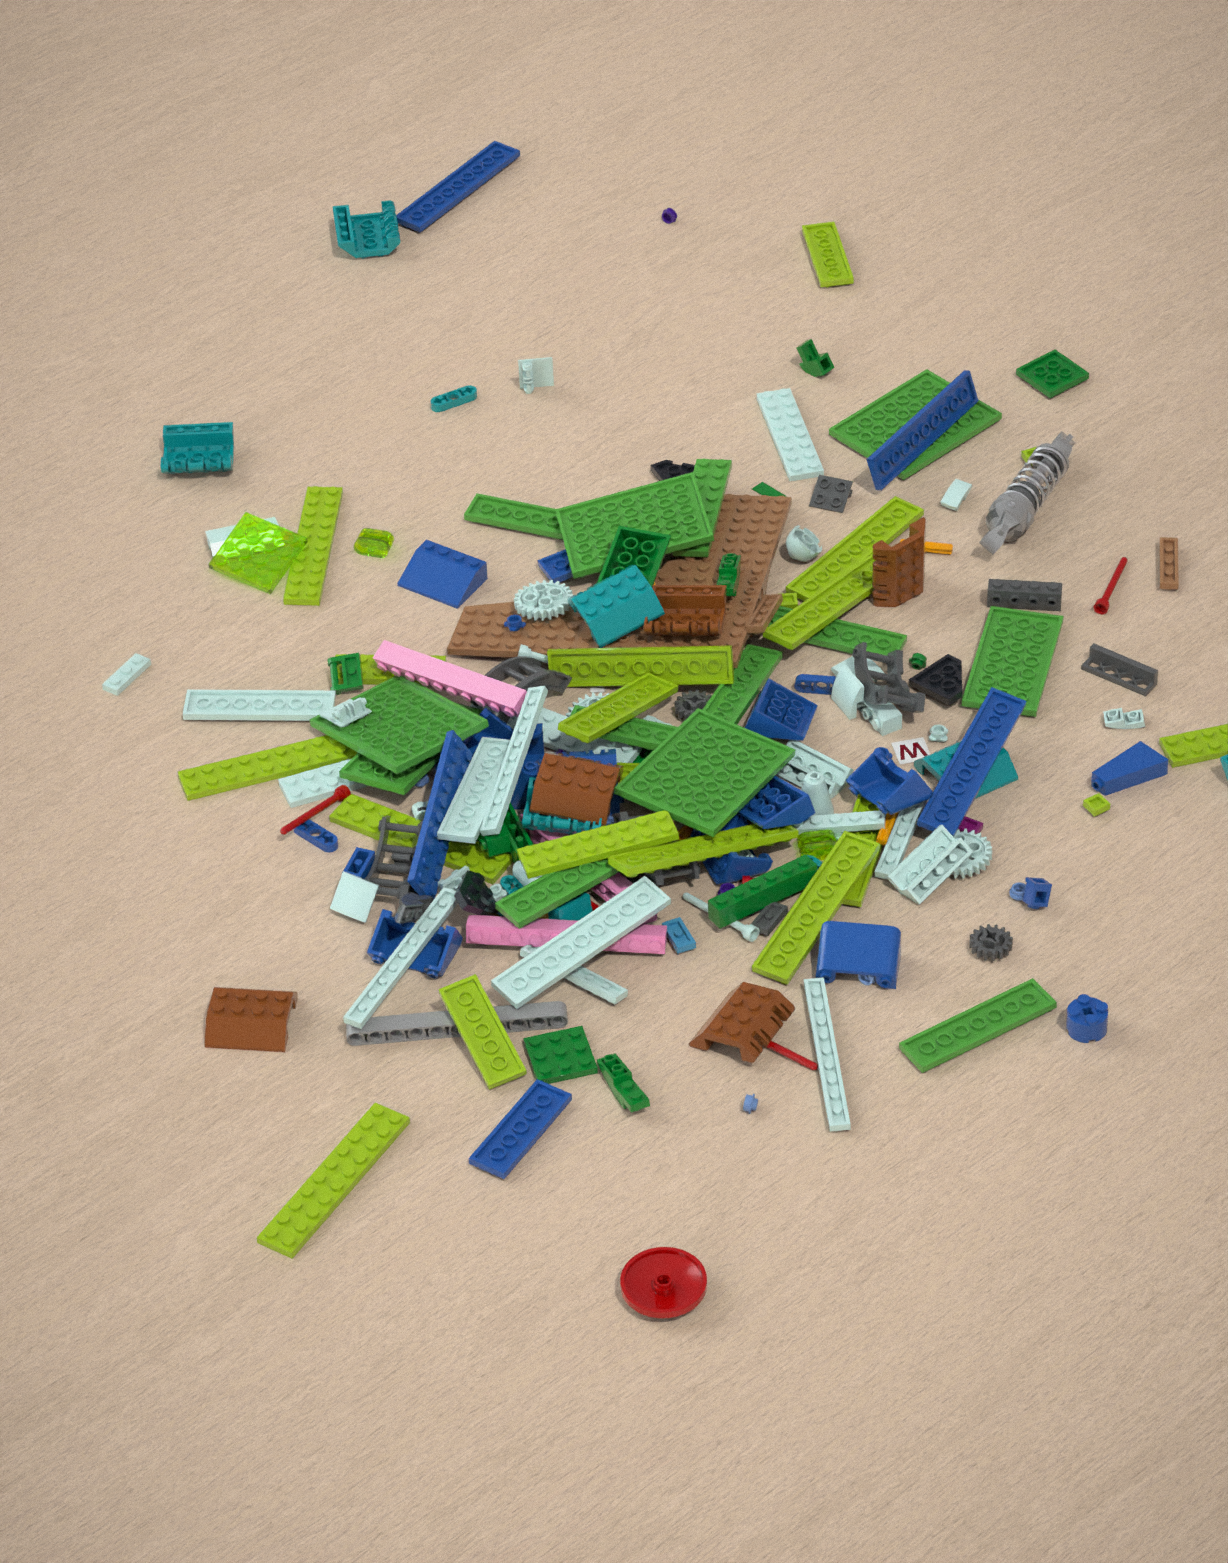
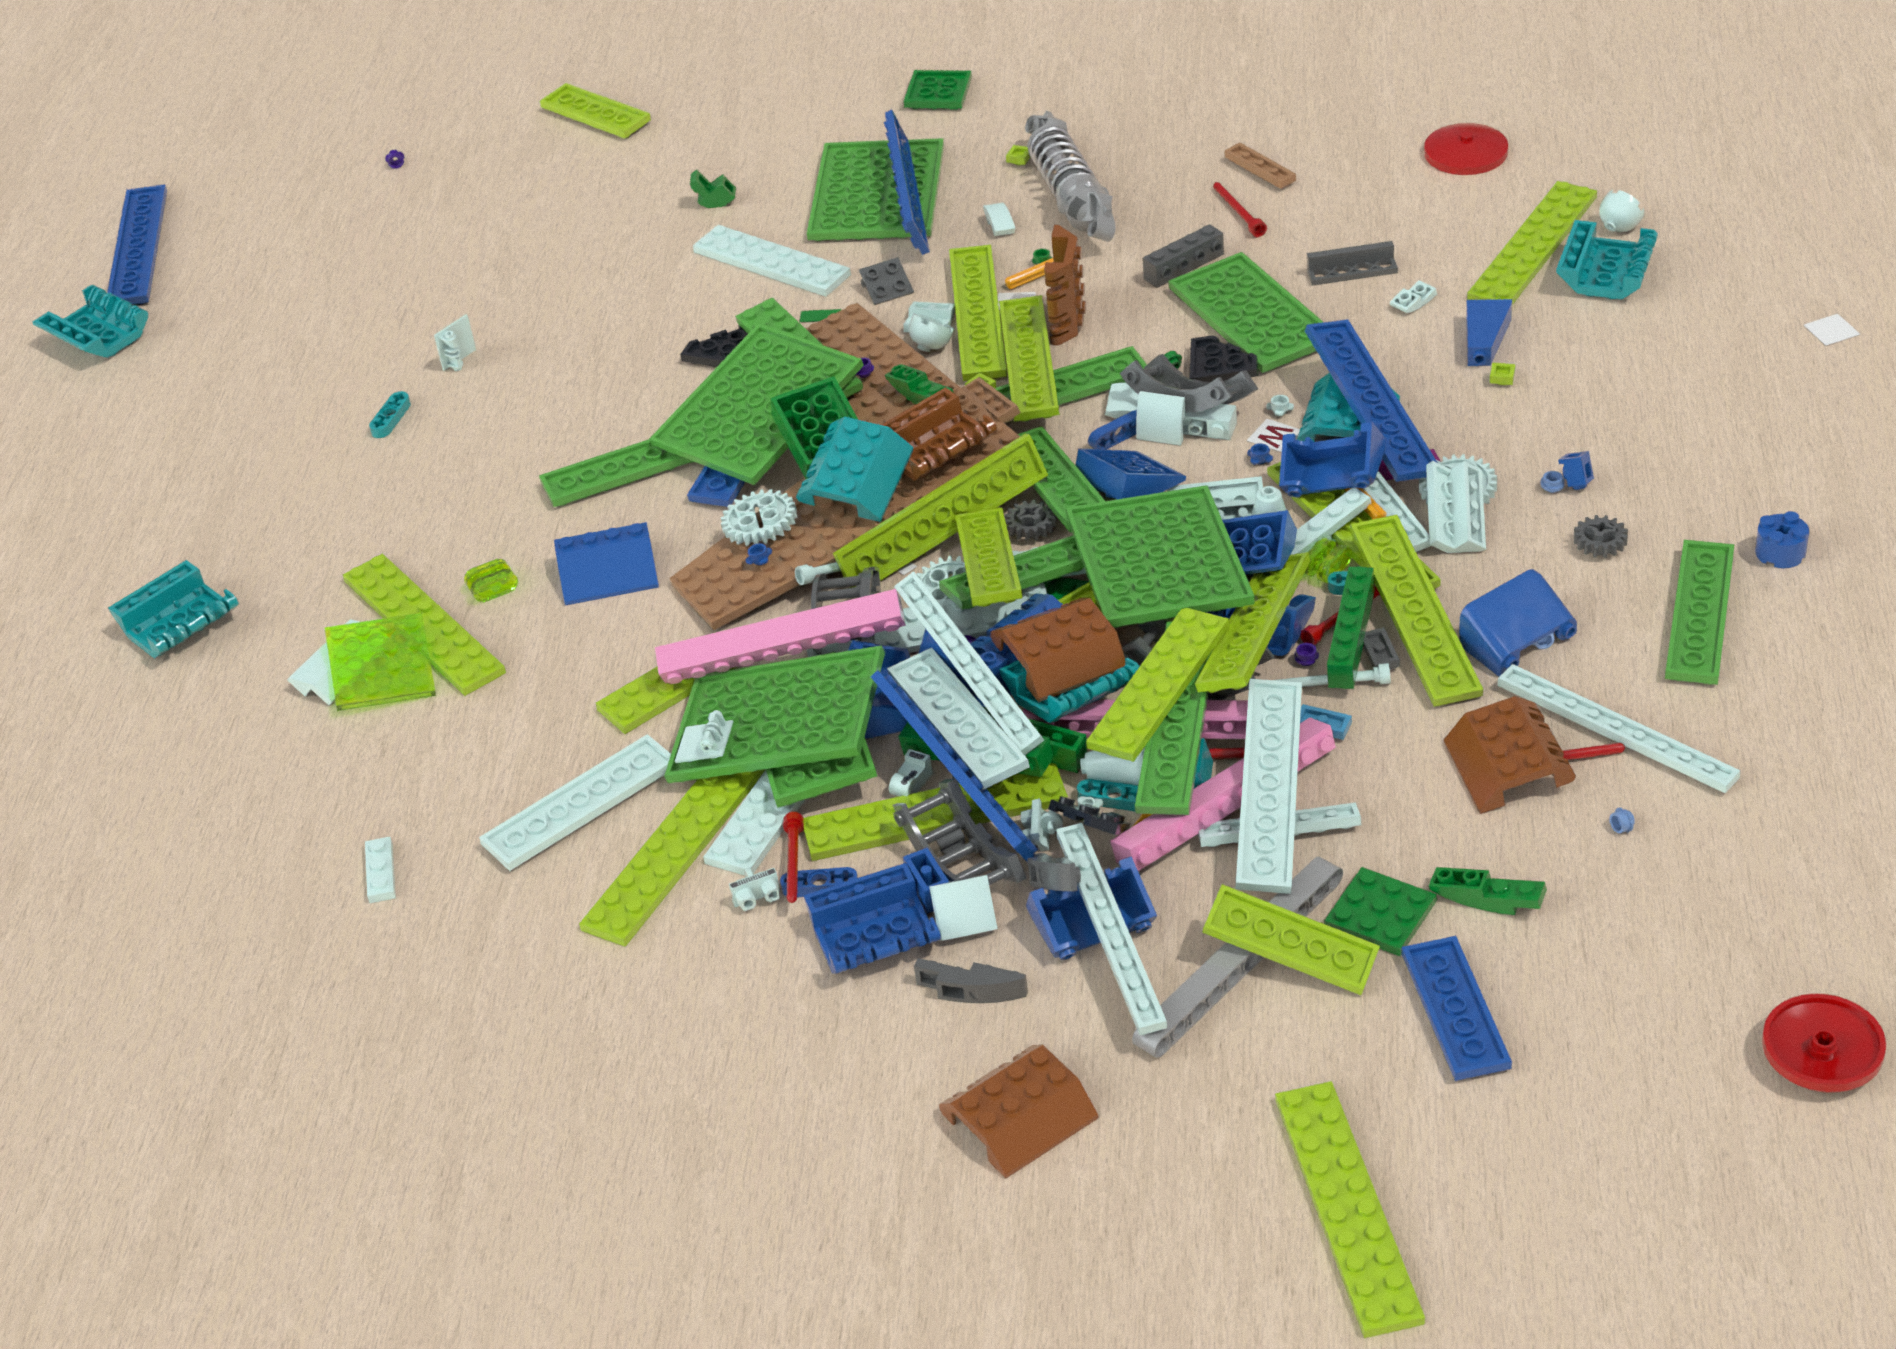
camera: 40 degrees left, 0 degrees up
(279, 813) = (753, 887): none -> light aqua hips
(304, 869) = (869, 918): none -> blue slope
(313, 941) = (976, 985): none -> dark grey slope
(351, 673) = (644, 704): green plate -> none
(724, 542) = (866, 370): none -> dark purple plate
(828, 534) = (940, 311): none -> light aqua slope
(944, 537) = (1041, 255): none -> green plate

